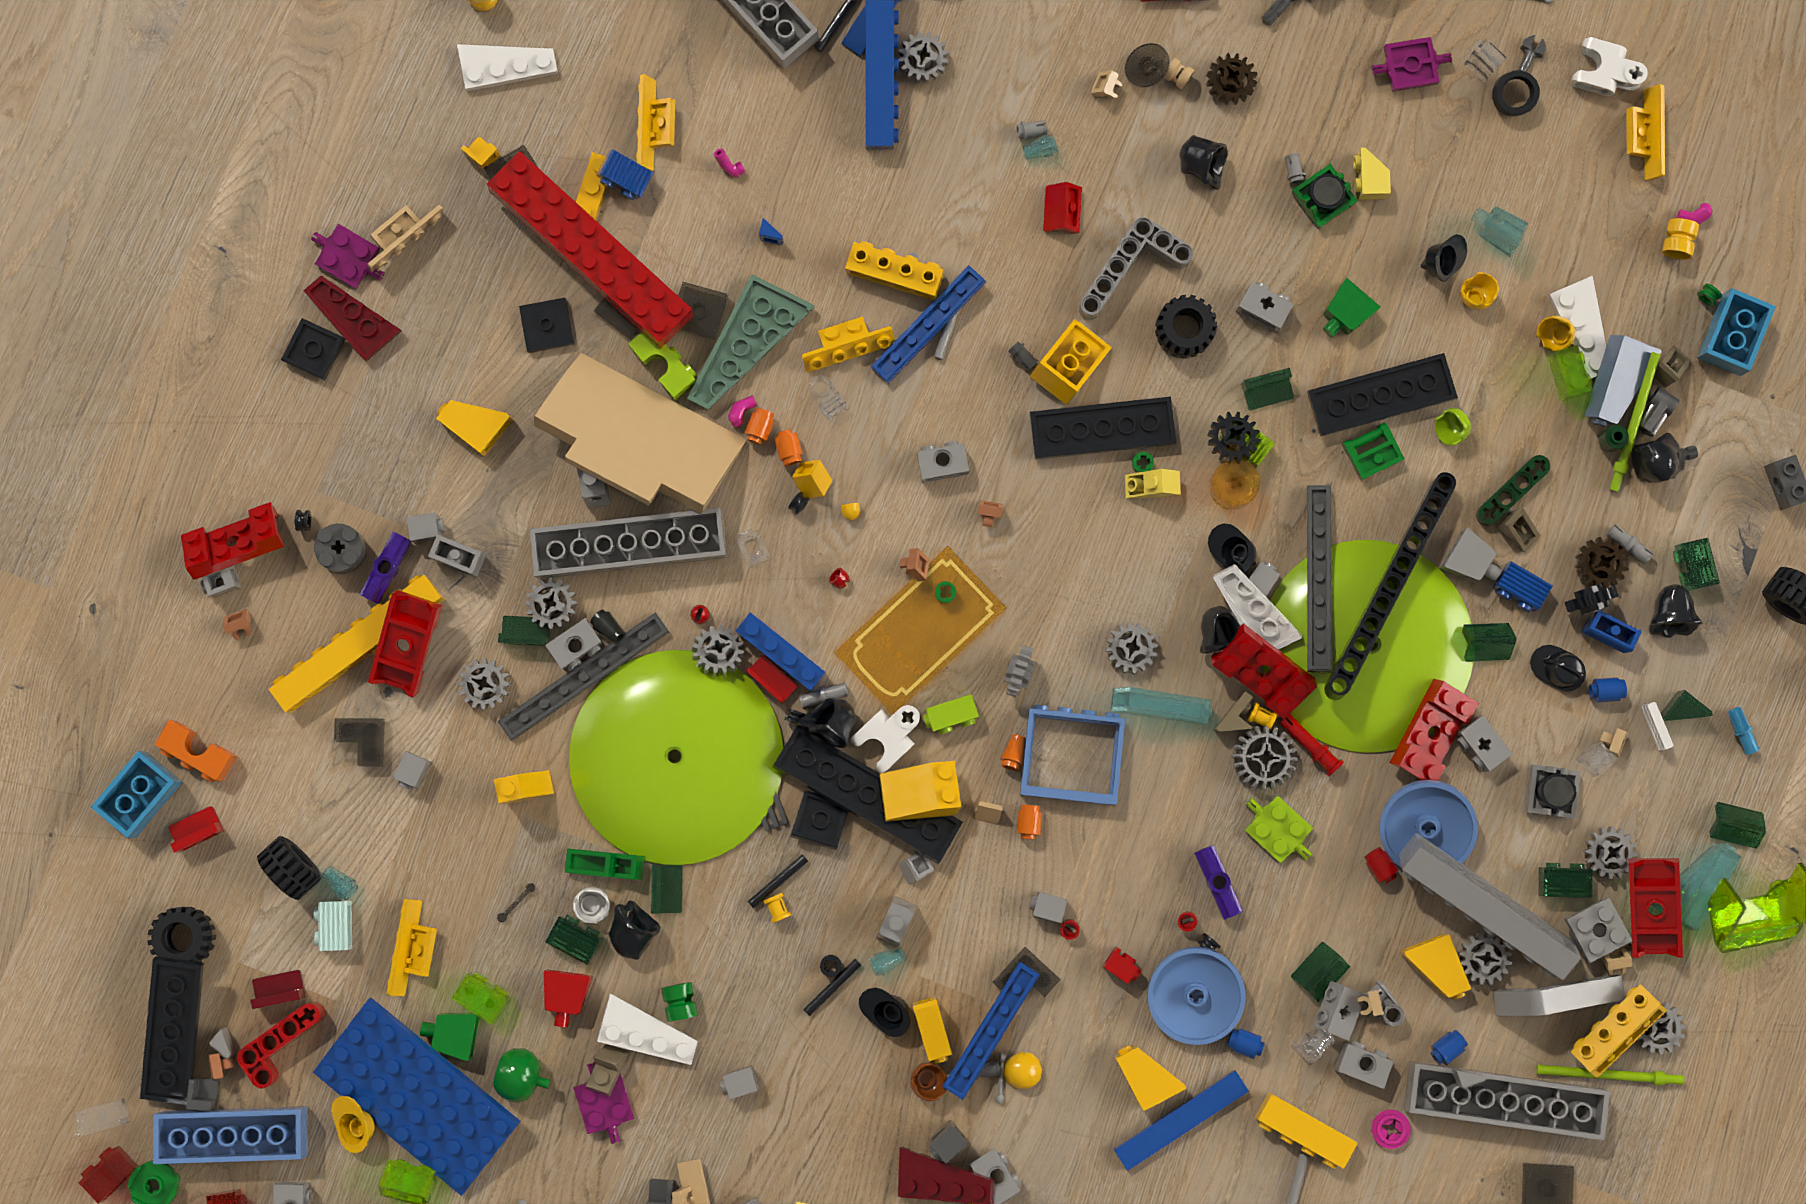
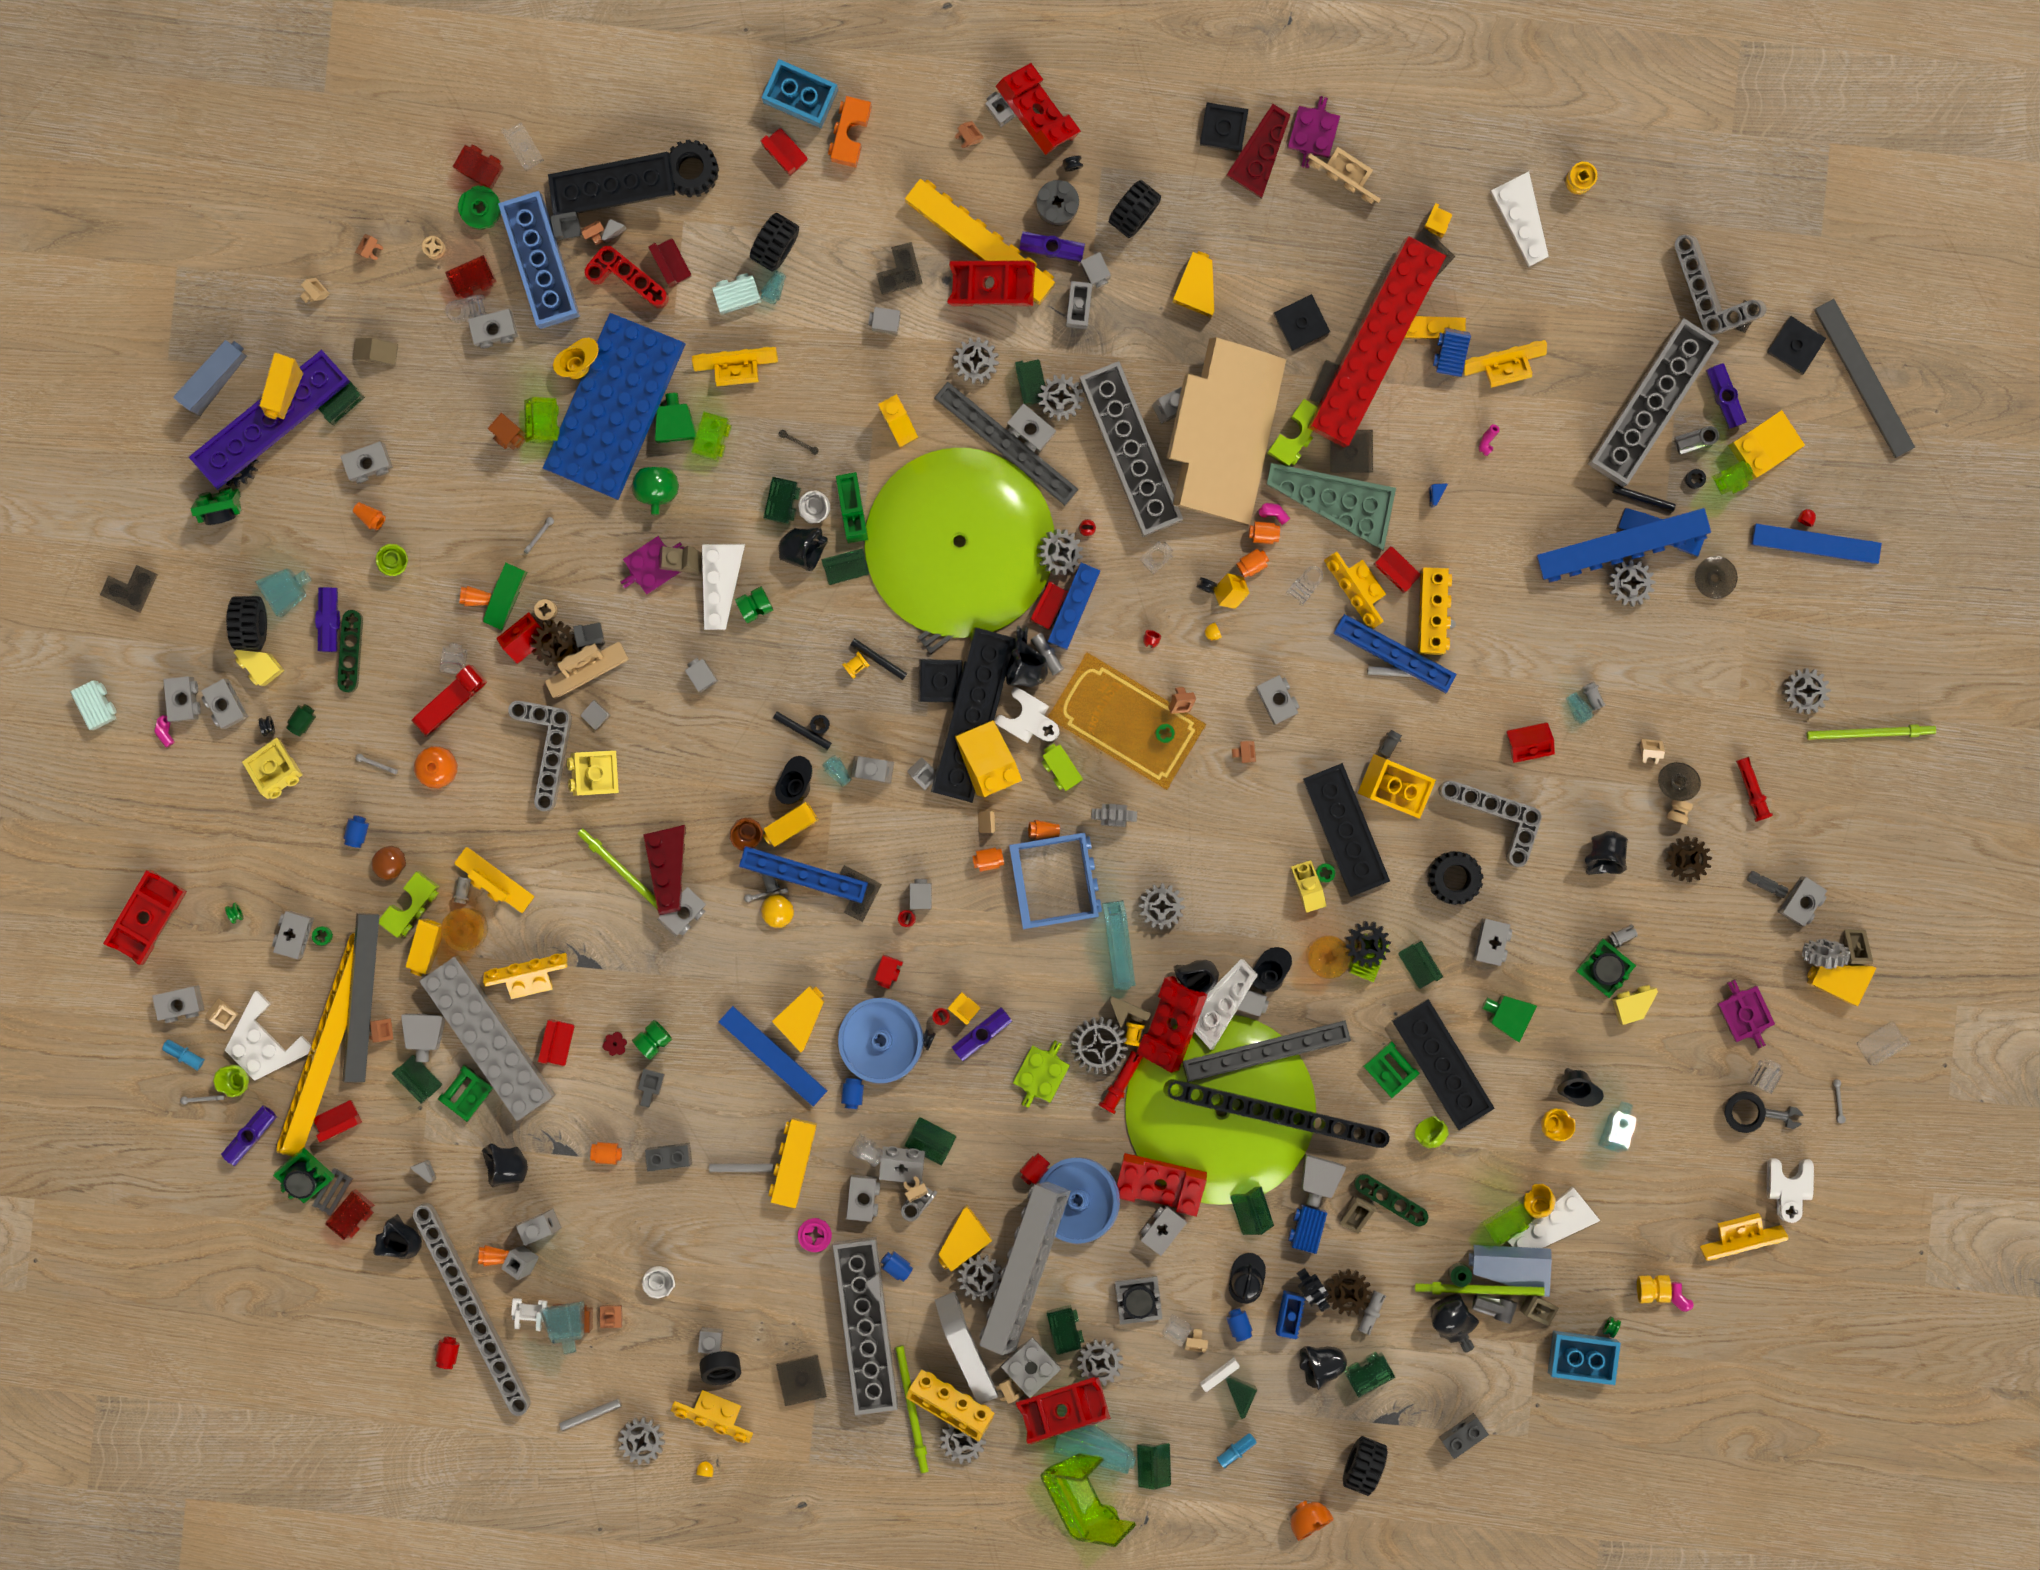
camera: 80 degrees right, 5 degrees up
(370, 466) = (1134, 208): none -> black tyre
(565, 994) = (733, 506): red torso -> none
(607, 626) = (1055, 451): pearl dark grey cone -> none
(839, 297) = (1397, 569): none -> red panel
(947, 1142) = (700, 863): dark grey brick -> none
(1184, 894) = (964, 1008): none -> yellow panel

